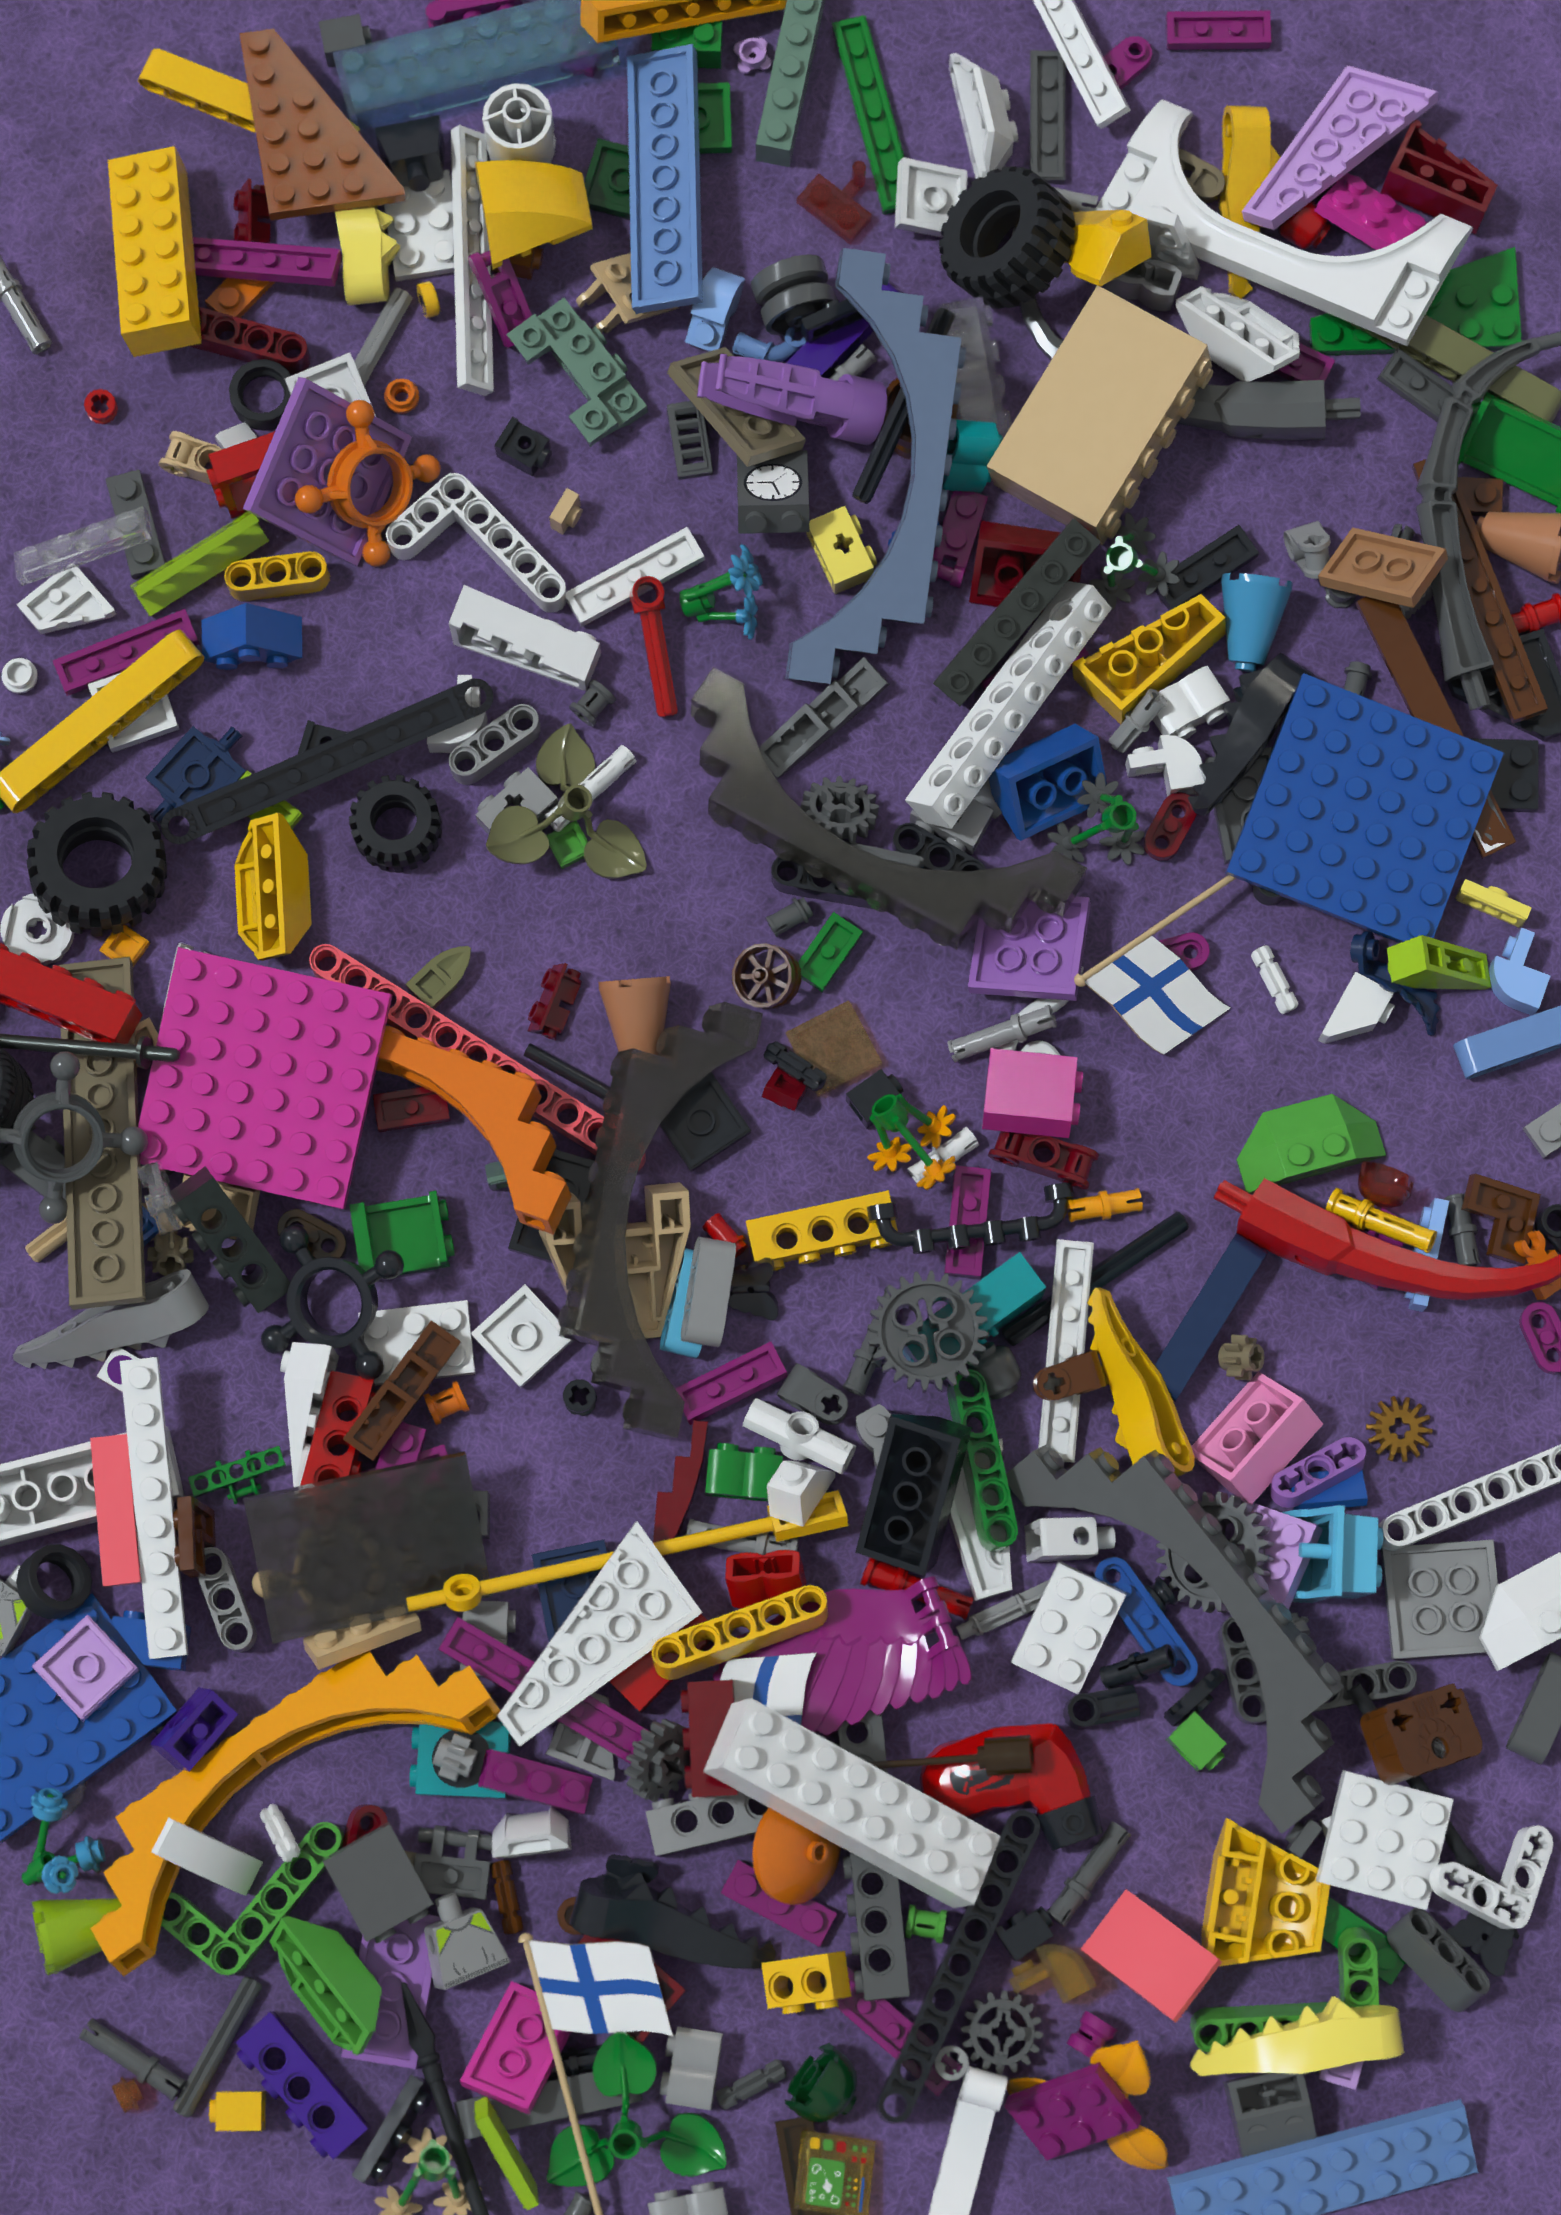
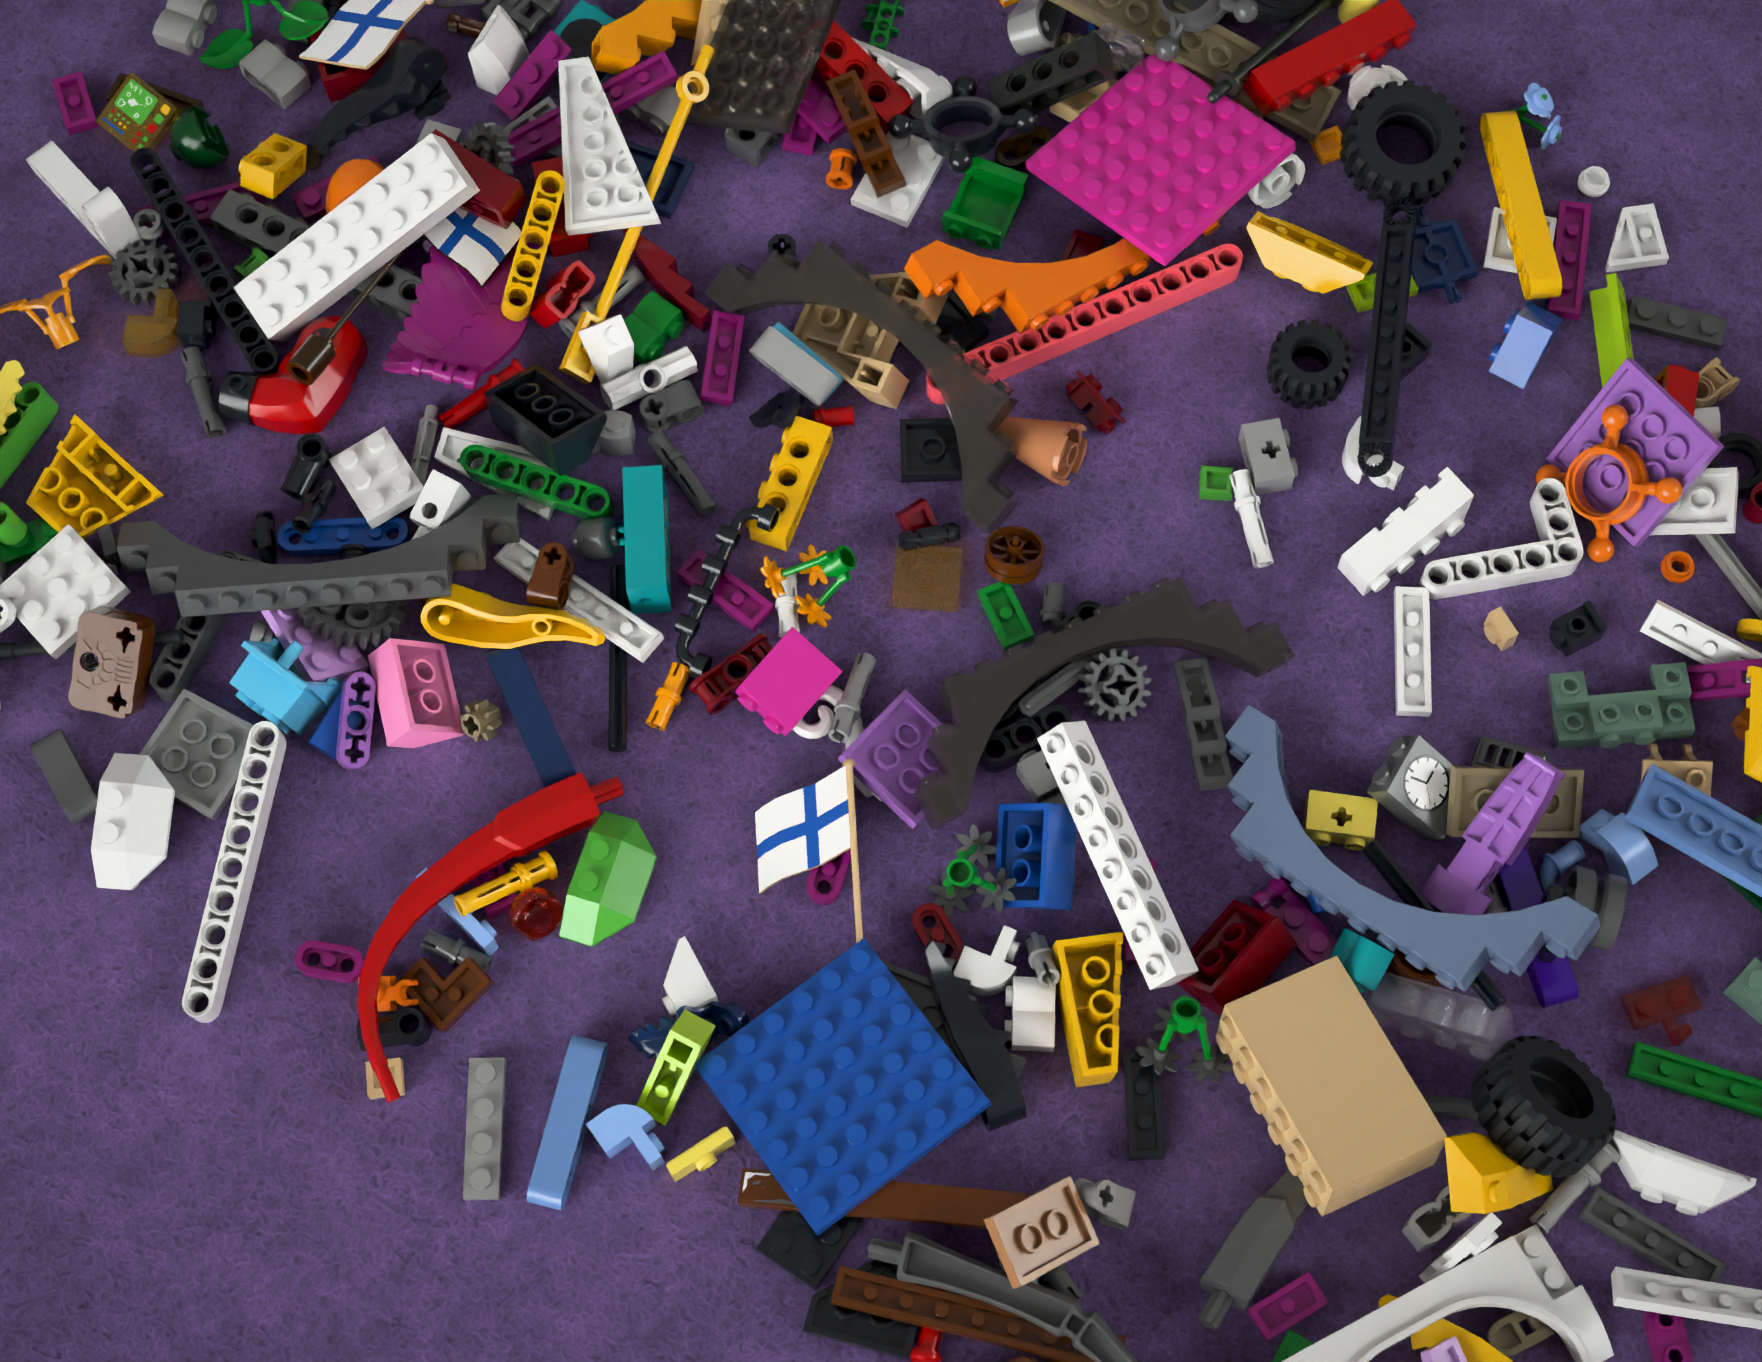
camera: 125 degrees right, 10 degrees down
(82, 545) = (1676, 268): clear plate -> none
(262, 568) = (1573, 380): yellow beam -> none
(440, 976) = (1166, 332): olive plate -> none
(455, 1757) = (583, 24): light grey gear -> none
(501, 728) = (1335, 457): light grey beam -> none
(520, 839) = (1239, 434): olive plant -> none
(521, 1336) = (860, 235): white plate -> none
(566, 1071) = (1042, 380): black bar -> none
(592, 703) = (1322, 559): dark grey bush -> none
(655, 645) = (1346, 630): red axle -> none
(745, 575) = (1358, 701): plant -> none
(751, 2084) = (238, 106): dark grey axle -> none
(869, 1091) = (867, 580): black brick -> none
(926, 195) = (1630, 1079): white plate -> none
(960, 1325) = (637, 502): dark grey gear -> none
(1016, 612) = (1193, 910): pearl dark grey brick -> none
(1073, 2111) = (51, 270): magenta plate -> none
(1094, 2027) = (95, 327): magenta wheel -> none
(1151, 1955) = (112, 388): coral slope -> none
(1197, 1743) = (232, 515): bright green brick -> none
(1238, 333) = (1340, 1267): white wedge -> none
(1252, 616) = (1075, 1113): dark azure cone -> none
(1274, 979) = (758, 939): white axle -> none
(1357, 677) = (962, 1166): dark grey pin -> none
(1391, 1441) = (349, 820): pearl gold gear -> none

